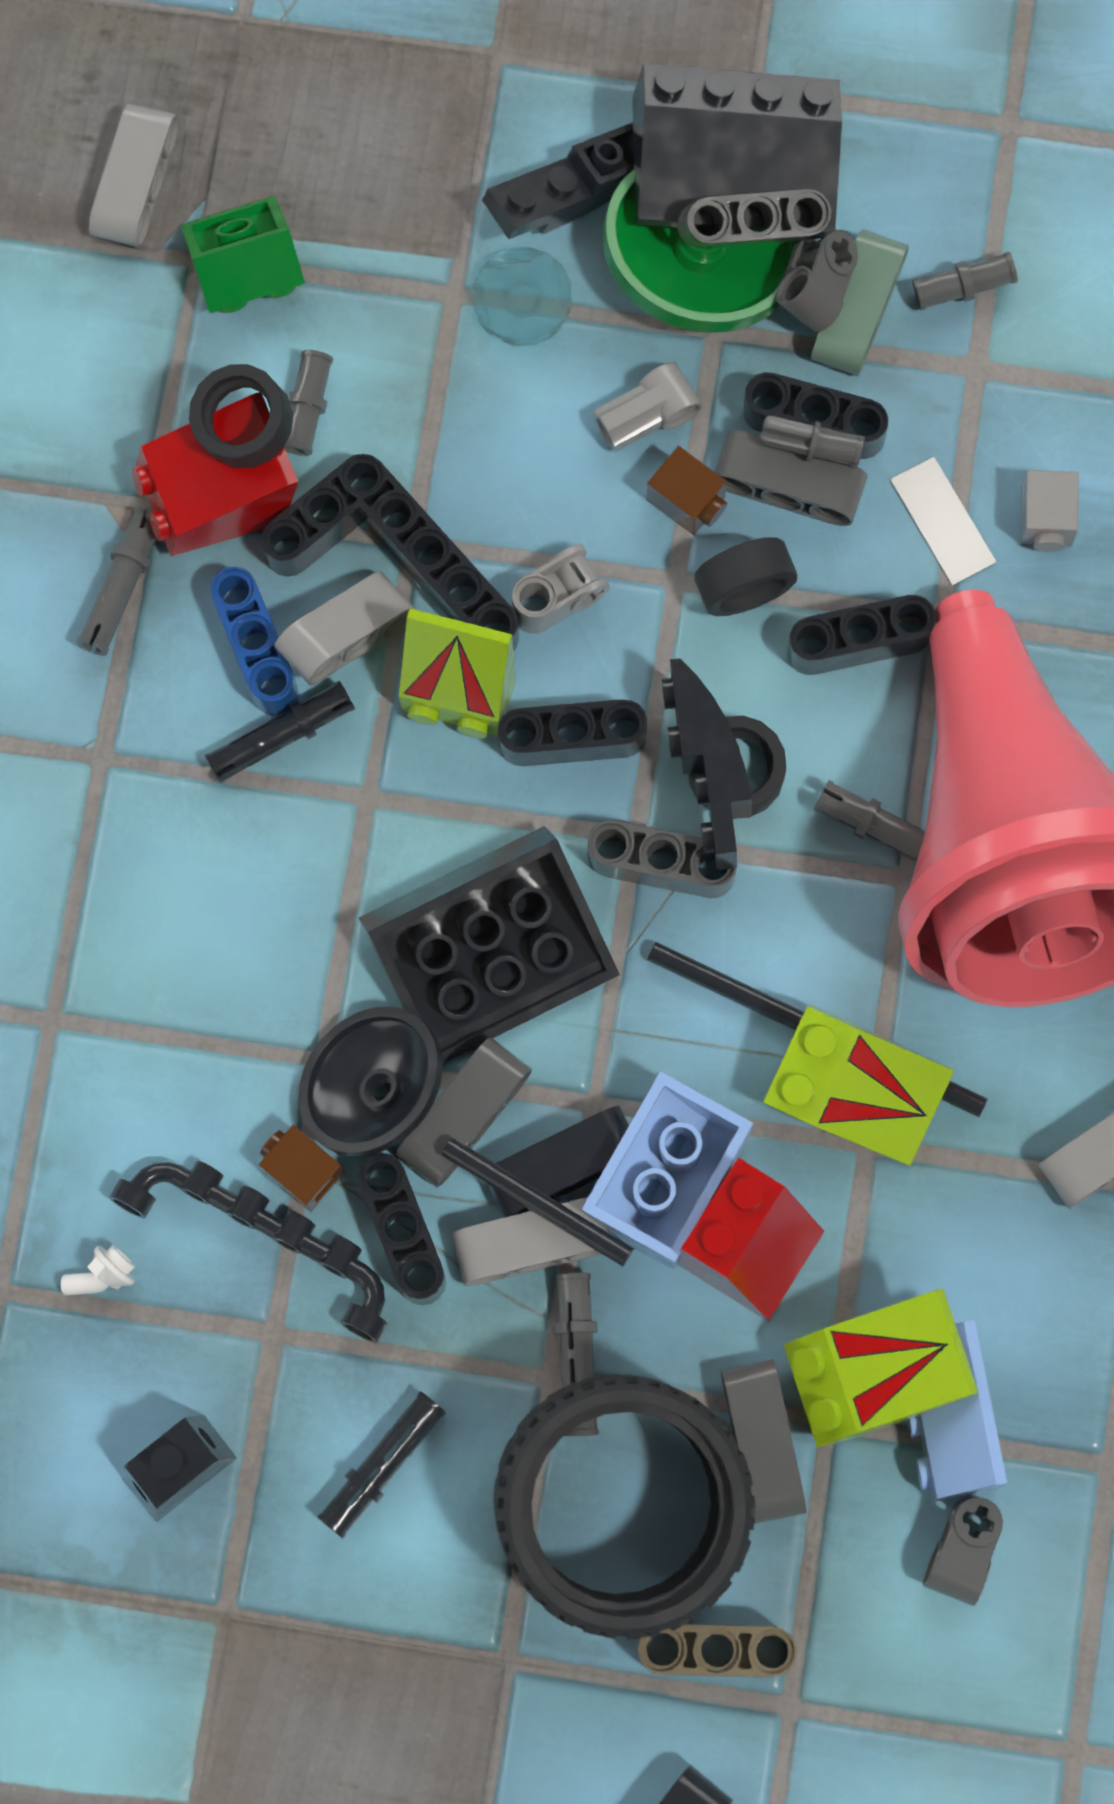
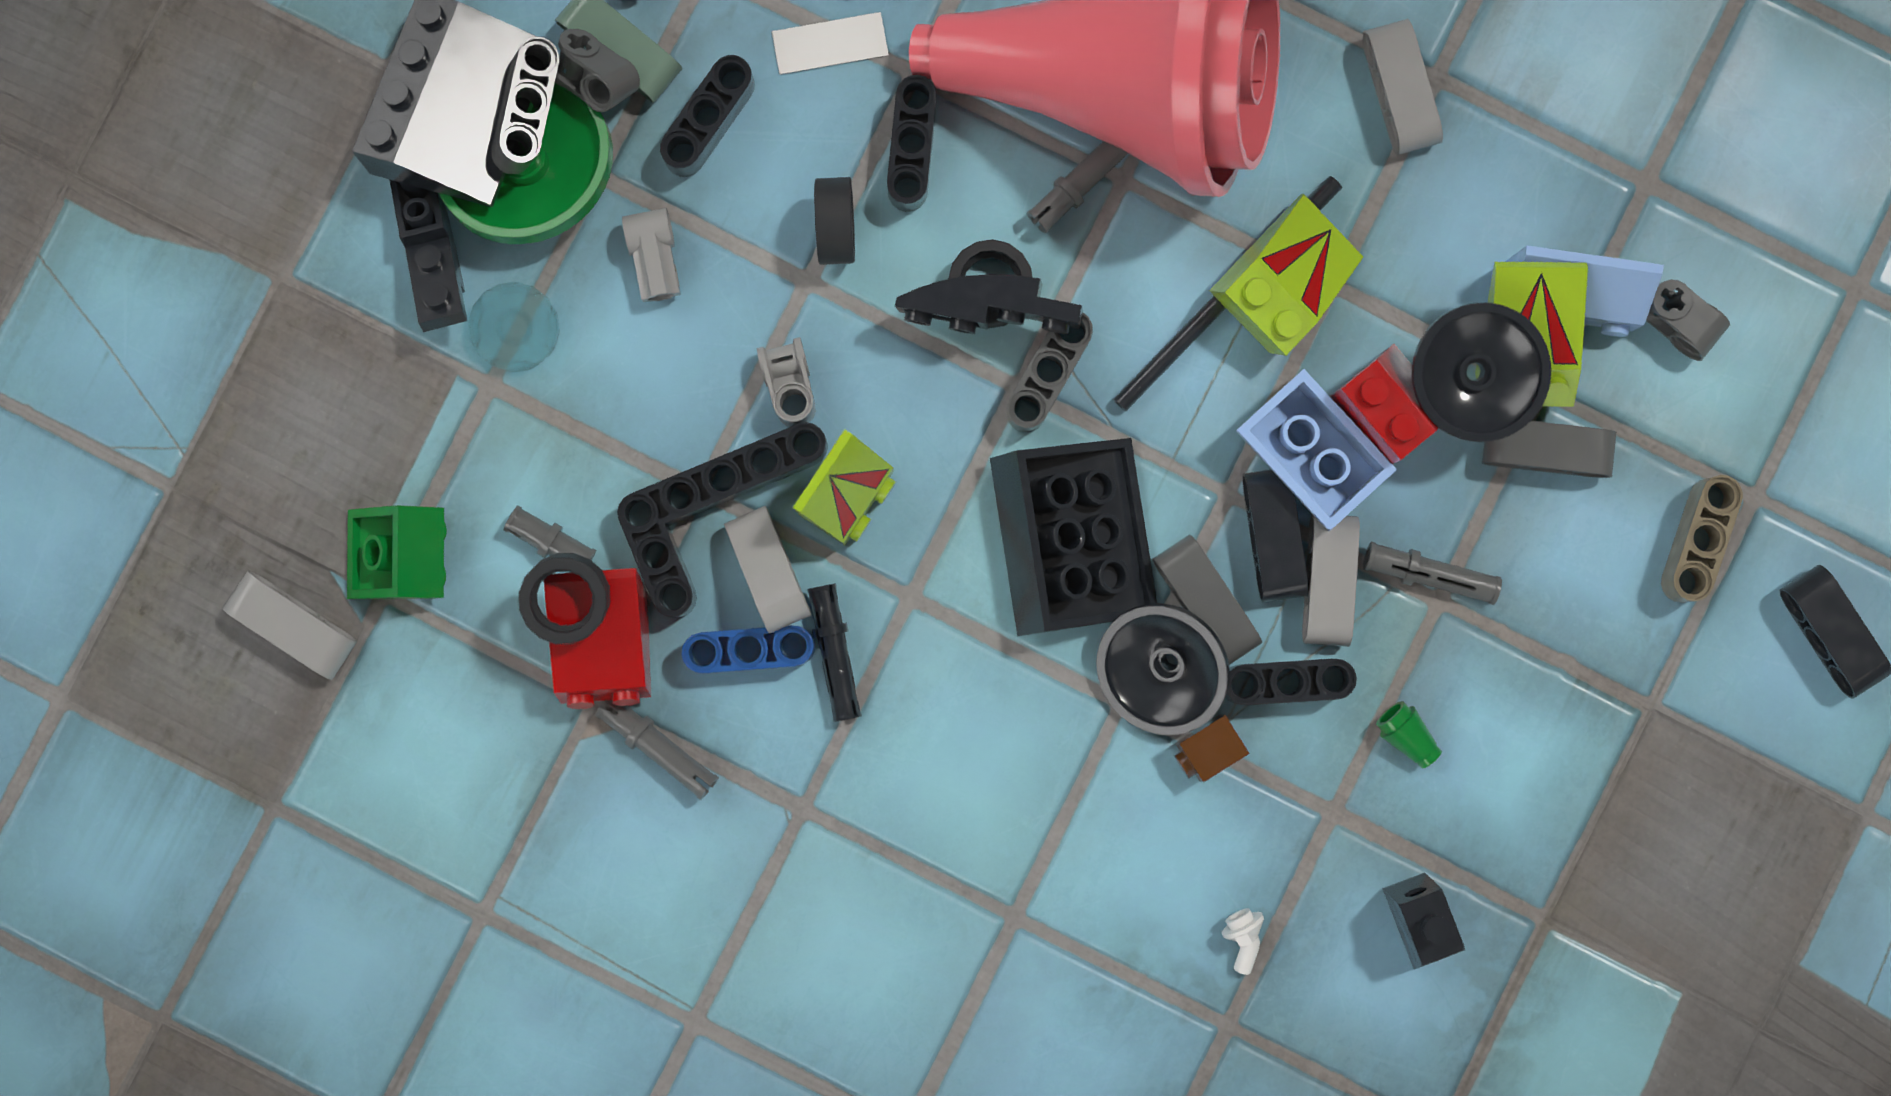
camera: 80 degrees left, 10 degrees up
(249, 1210) = (1230, 800): black bar -> none
(338, 1515) = (1471, 758): black pin -> none
(385, 1386) = (1409, 734): none -> green cone
(537, 1202) = (1308, 564): black bar -> none
(592, 716) = (913, 387): black beam -> none
(687, 491) = (739, 244): reddish brown brick -> none
(704, 1574) = (1664, 574): black tyre -> none
(770, 1303) = (1511, 377): none -> black dish
(788, 481) = (754, 156): dark grey beam -> none
(812, 441) = (737, 124): dark grey axle -> none

